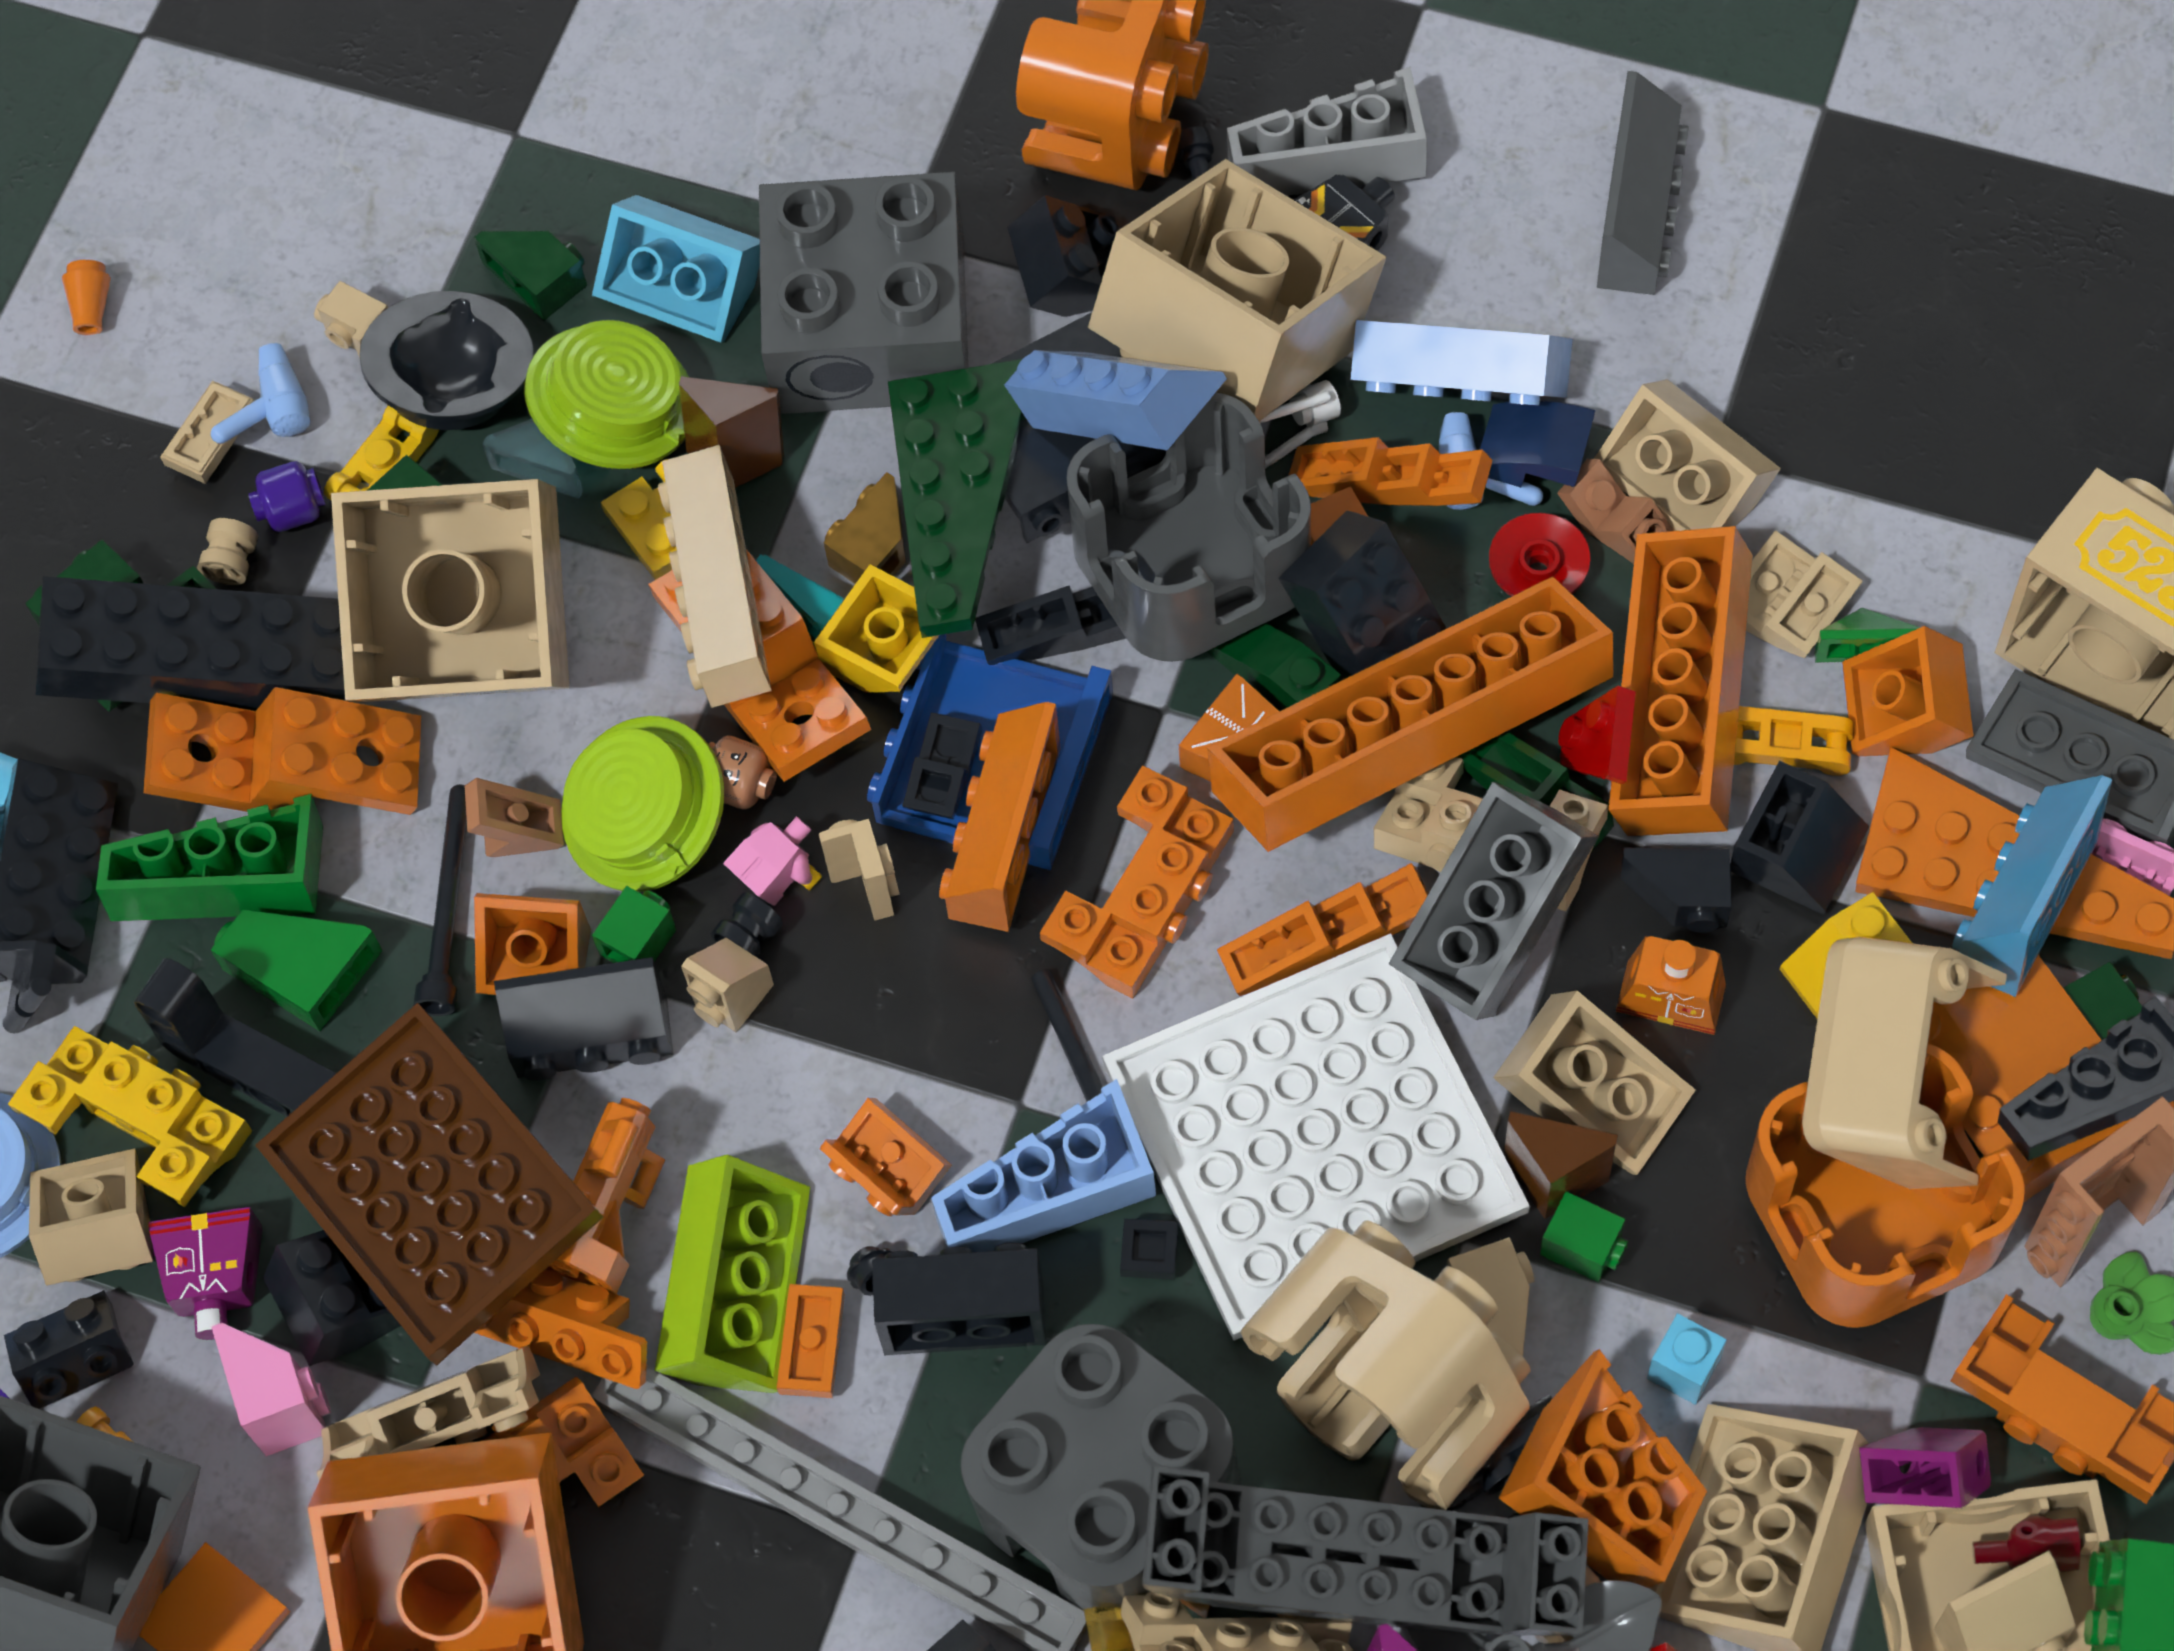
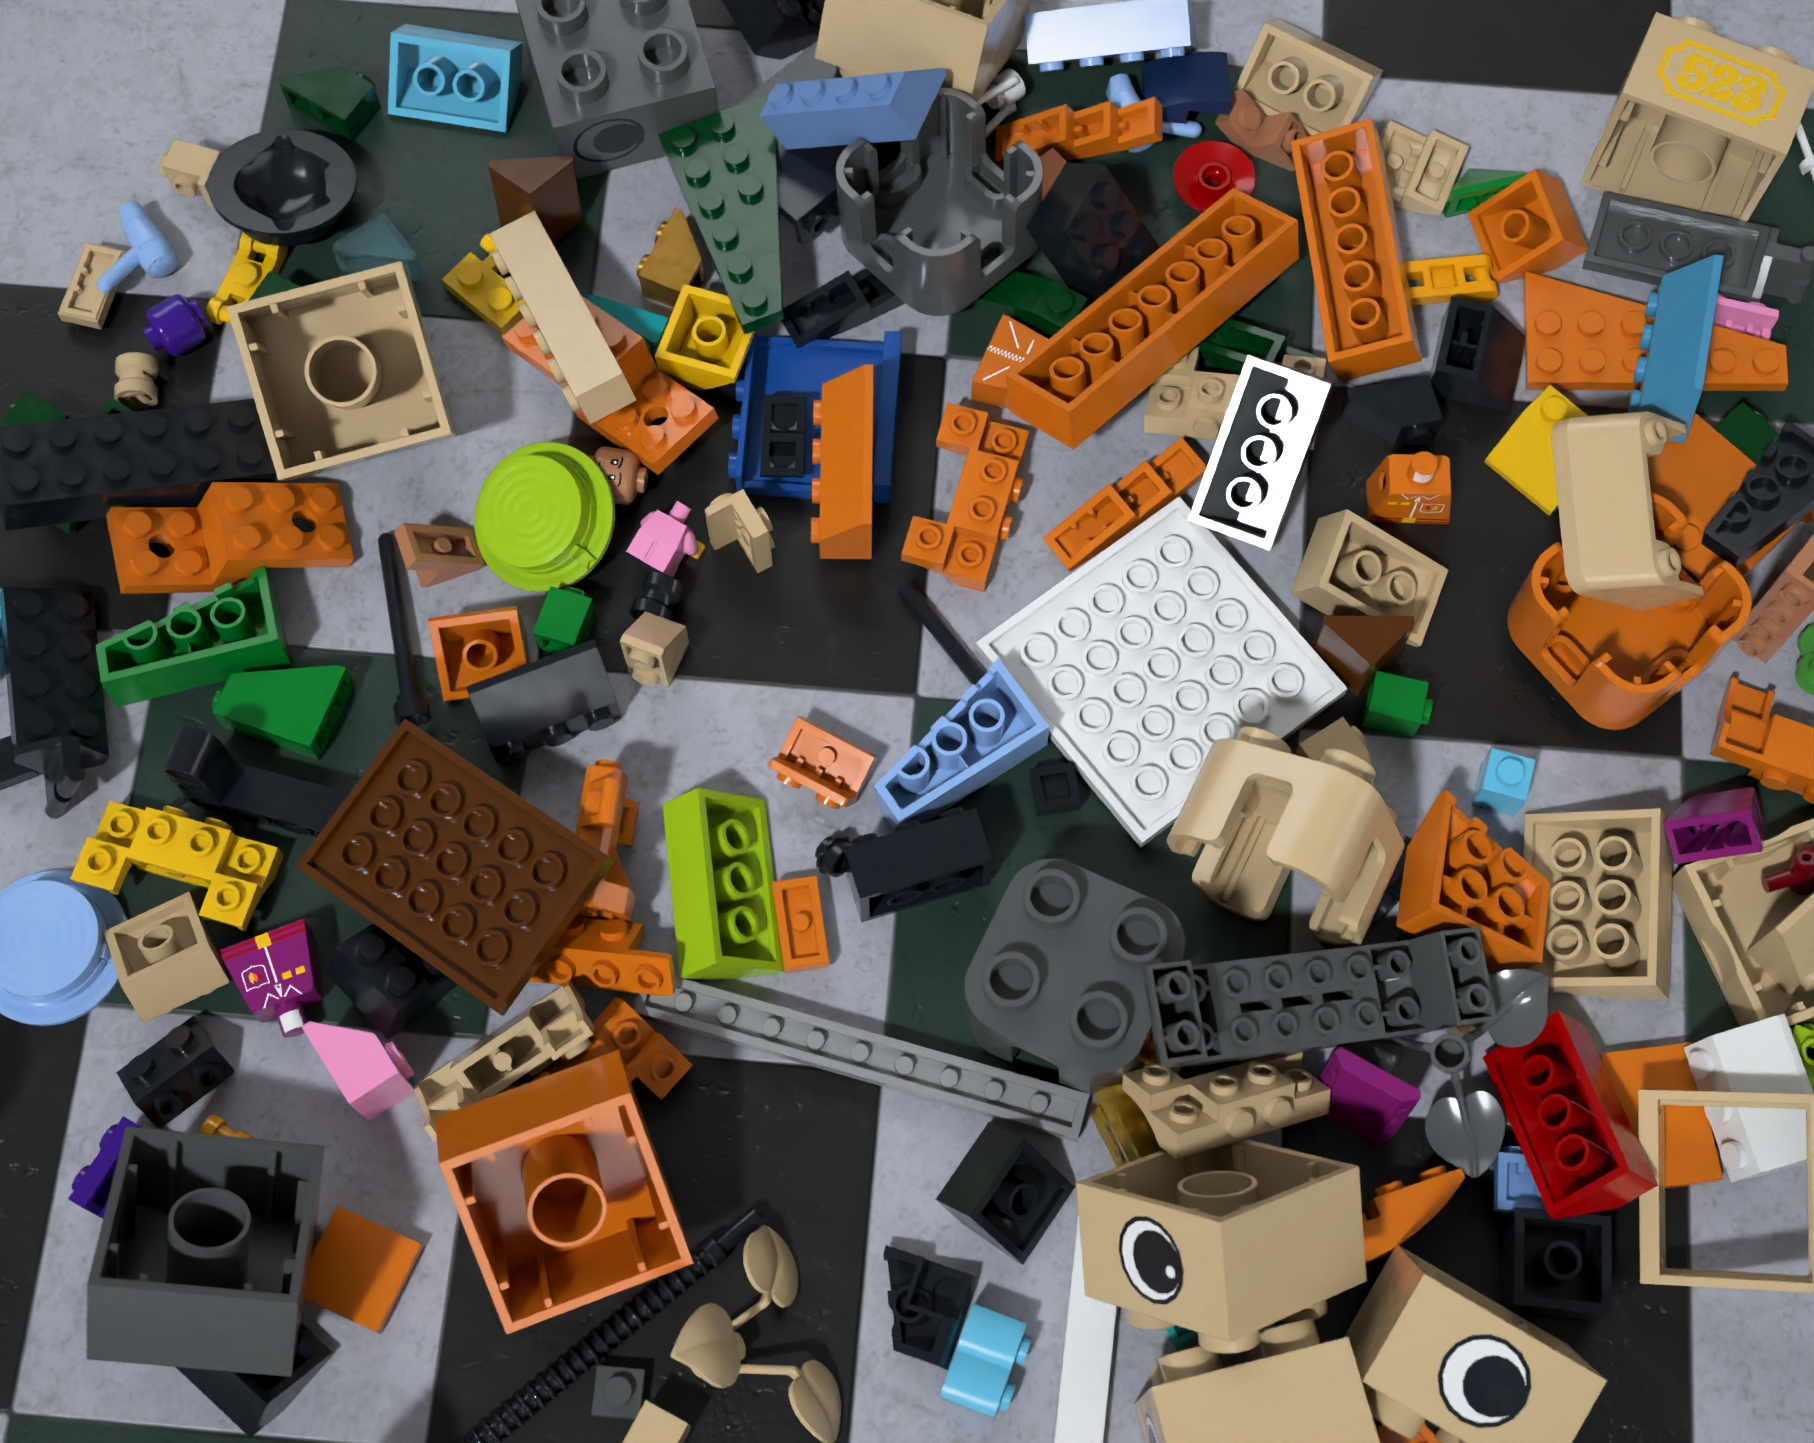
camera: 20 degrees left, 5 degrees up
(607, 395) = (426, 189): lime piece -> none
(1599, 736) = (1305, 306): red wing -> none

